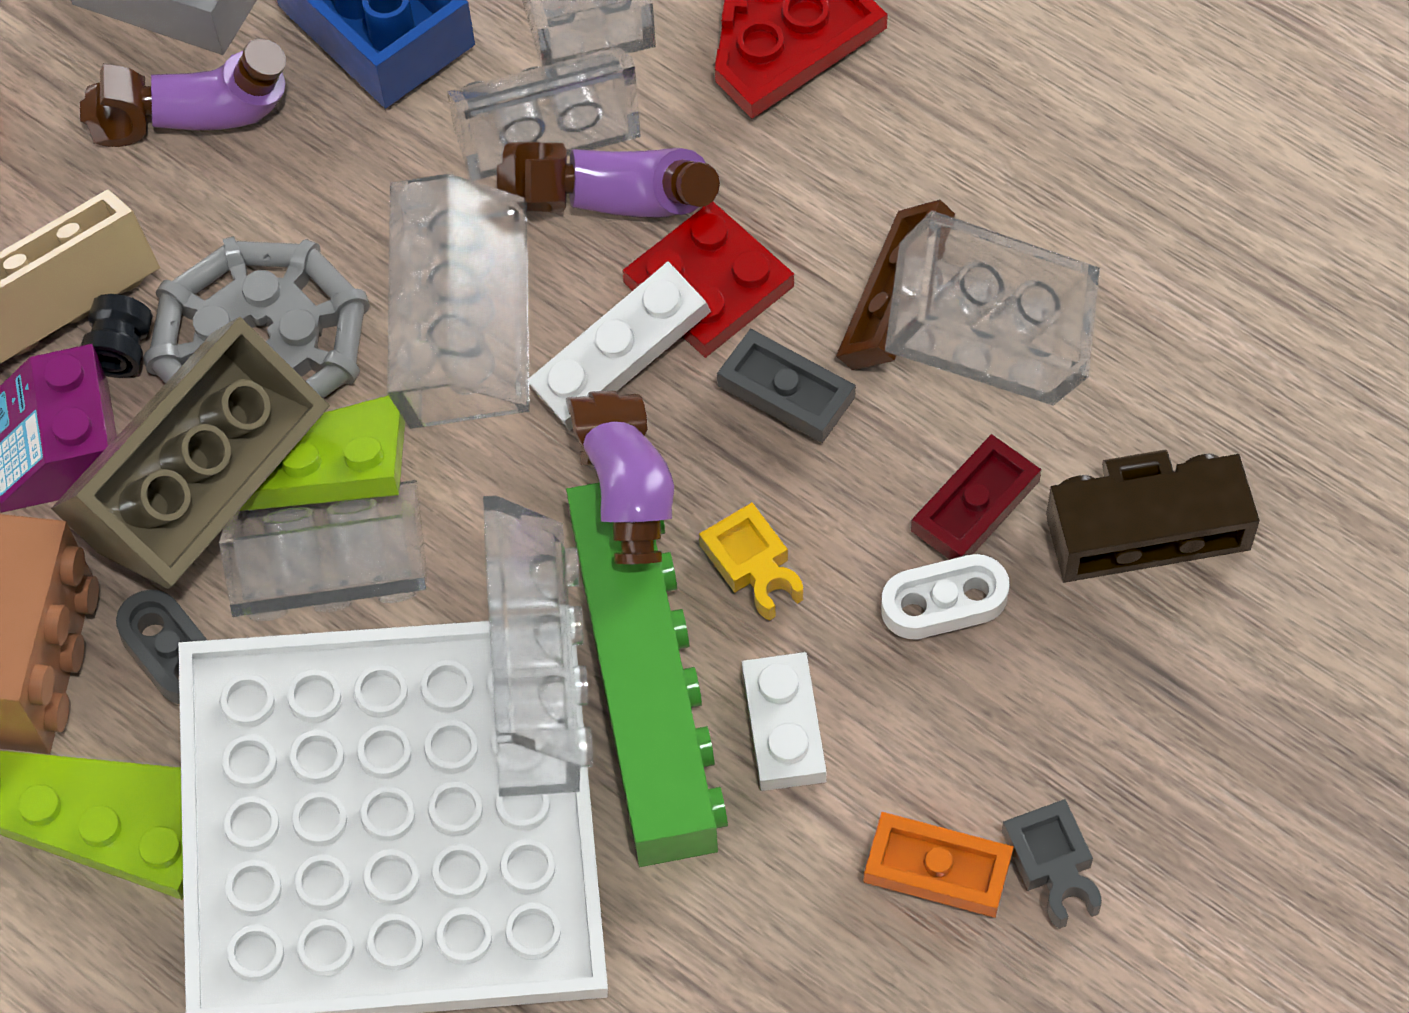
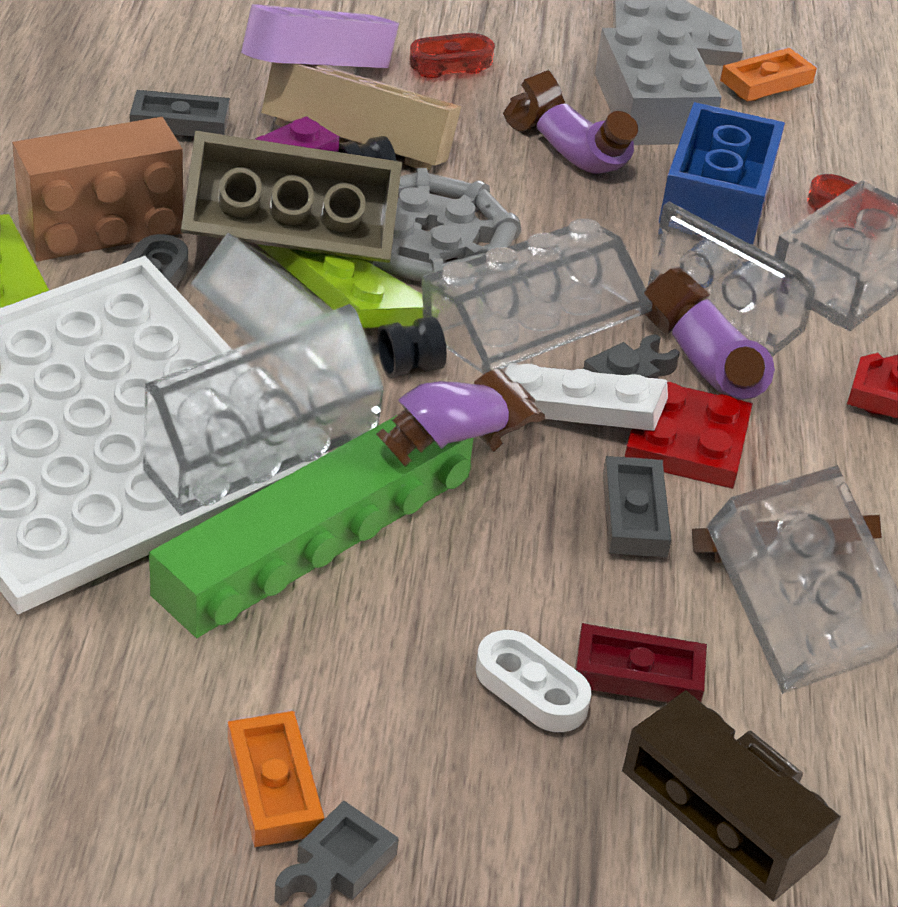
camera: 50 degrees right, 20 degrees down
(452, 456) = (411, 347): none -> black wheel
(590, 275) = (641, 361): none -> dark grey plate
(750, 553) = (465, 541): yellow plate -> none
(783, 721) = (339, 627): white plate -> none

